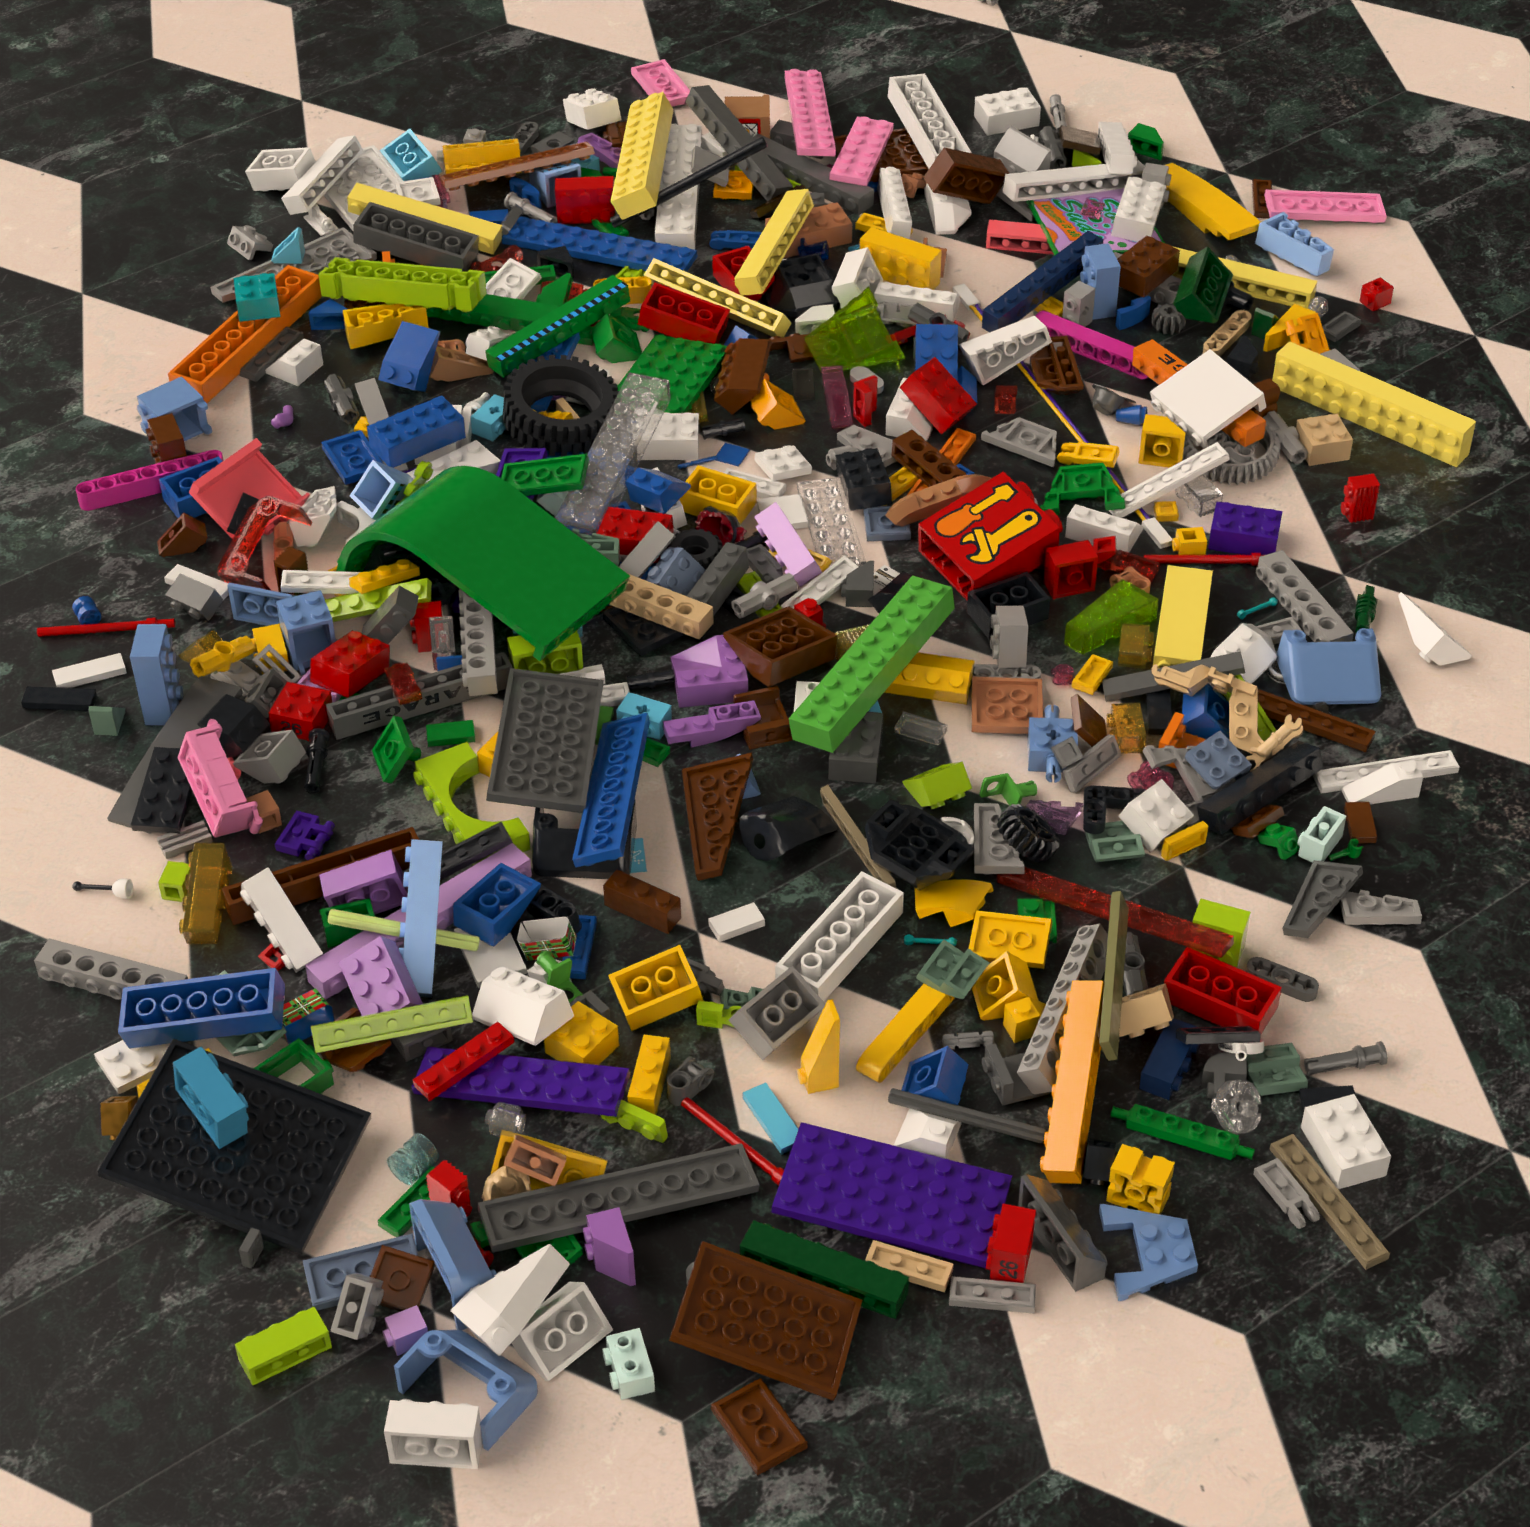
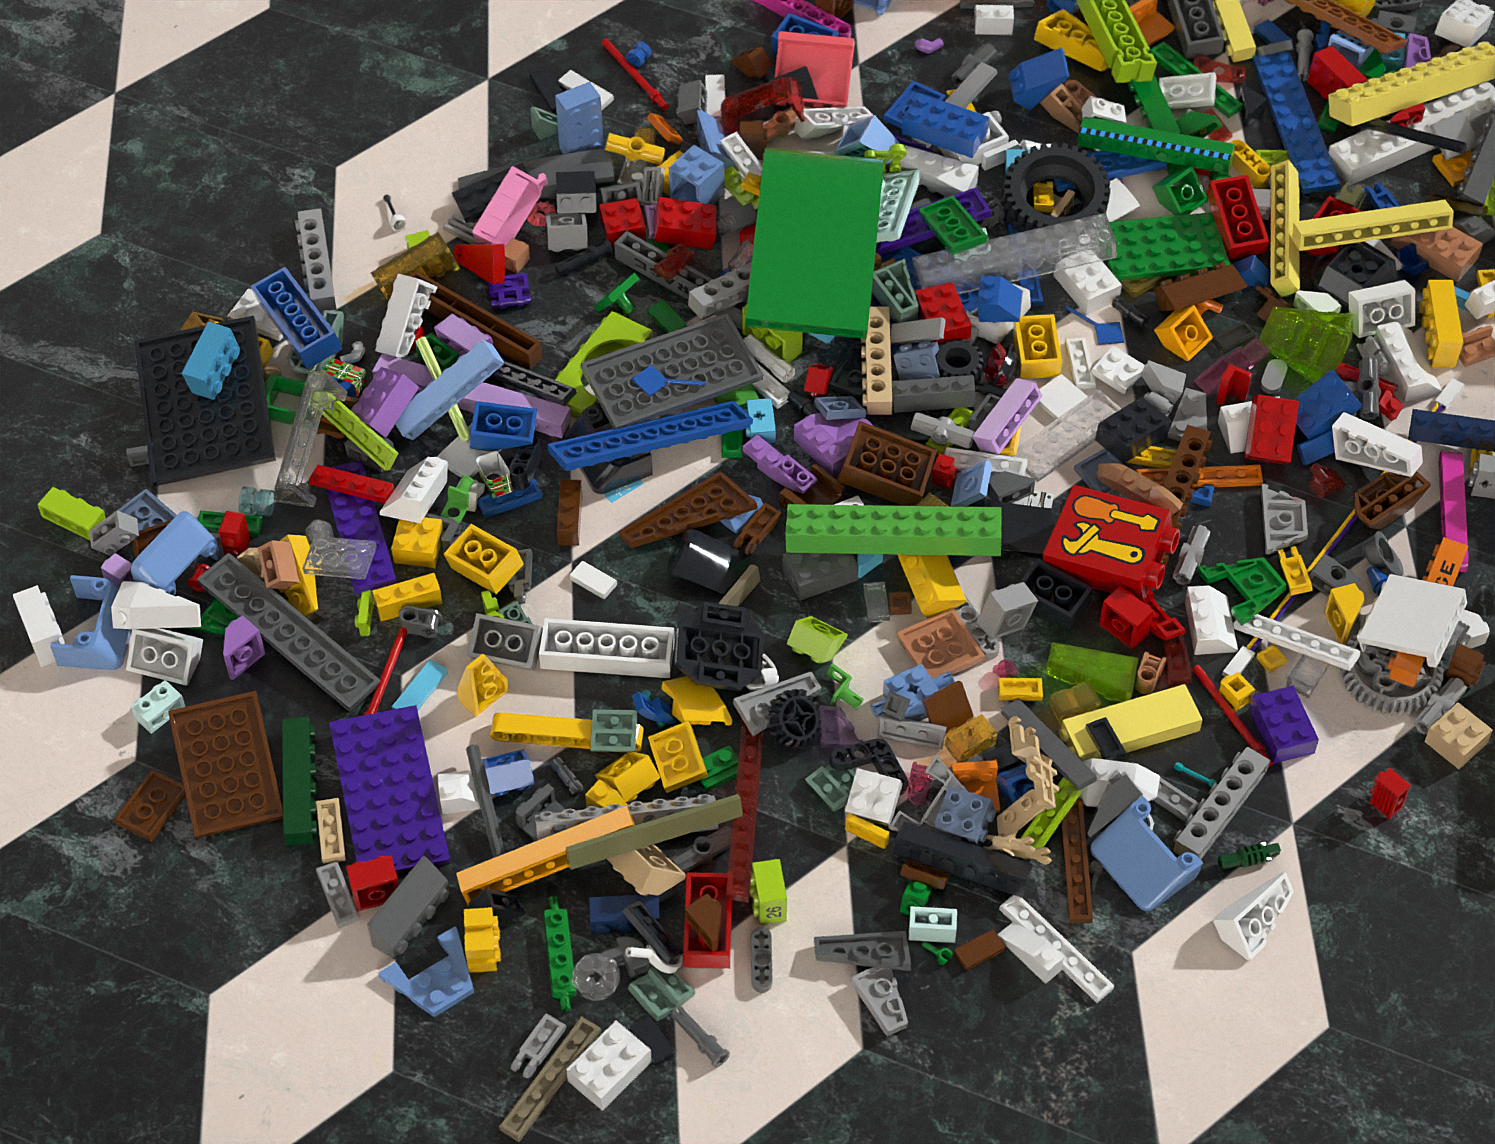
camera: 60 degrees right, 10 degrees up
(195, 633) = (664, 128): none -> orange tile
(258, 828) = (483, 259): none -> red piece
(379, 1070) = (318, 393): none -> clear windscreen
(552, 754) = (652, 380): none -> blue piece
(565, 1104) = (339, 557): none -> clear plate
(627, 654) = (818, 379): none -> red slope
(675, 171) = (1409, 116): none -> red slope
(679, 651) = (839, 407): none -> sand blue tile
(724, 244) = (1352, 198): none -> olive hinge
(772, 772) = (758, 527): none -> reddish brown hinge
(822, 438) = (1164, 380): none -> light grey slope
(844, 602) = (971, 484): none -> light blue plate
(937, 710) = (900, 603): none -> reddish brown plate
(941, 931) = (654, 710): none -> blue slope
(1117, 433) = (1325, 570): none -> dark grey brick
(1196, 636) = (1105, 739): none -> black tile
(1240, 982) = (705, 919): none -> reddish brown slope
(1269, 655) = (1116, 798): none -> dark grey slope

